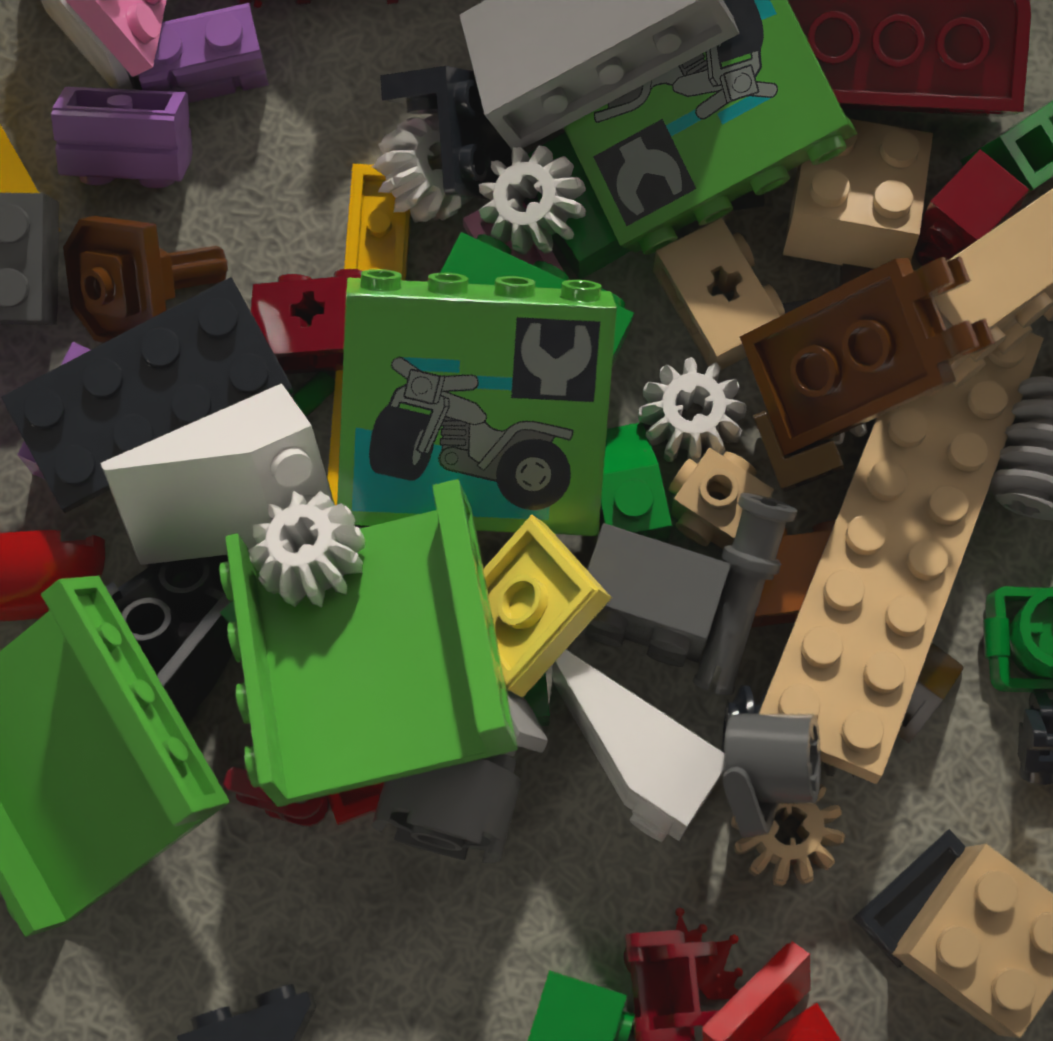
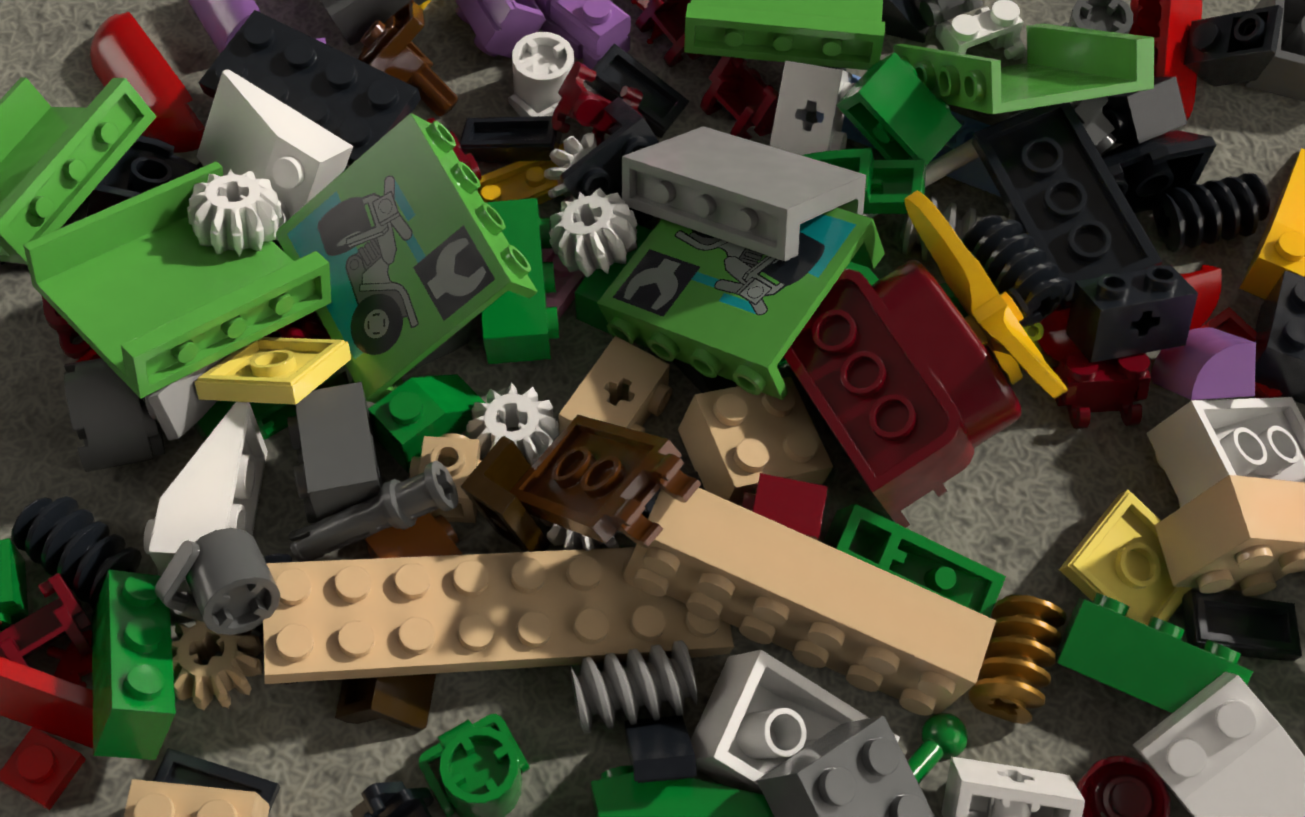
camera: 55 degrees right, 15 degrees down
(258, 144) = (539, 70): none -> white piece
(315, 219) = (510, 138): none -> black tile
(333, 56) = (660, 101): none -> black tile
(358, 118) = (585, 105): none -> dark red piece
(591, 907) = (72, 545): none -> black piece
(774, 903) = (131, 668): none -> green brick

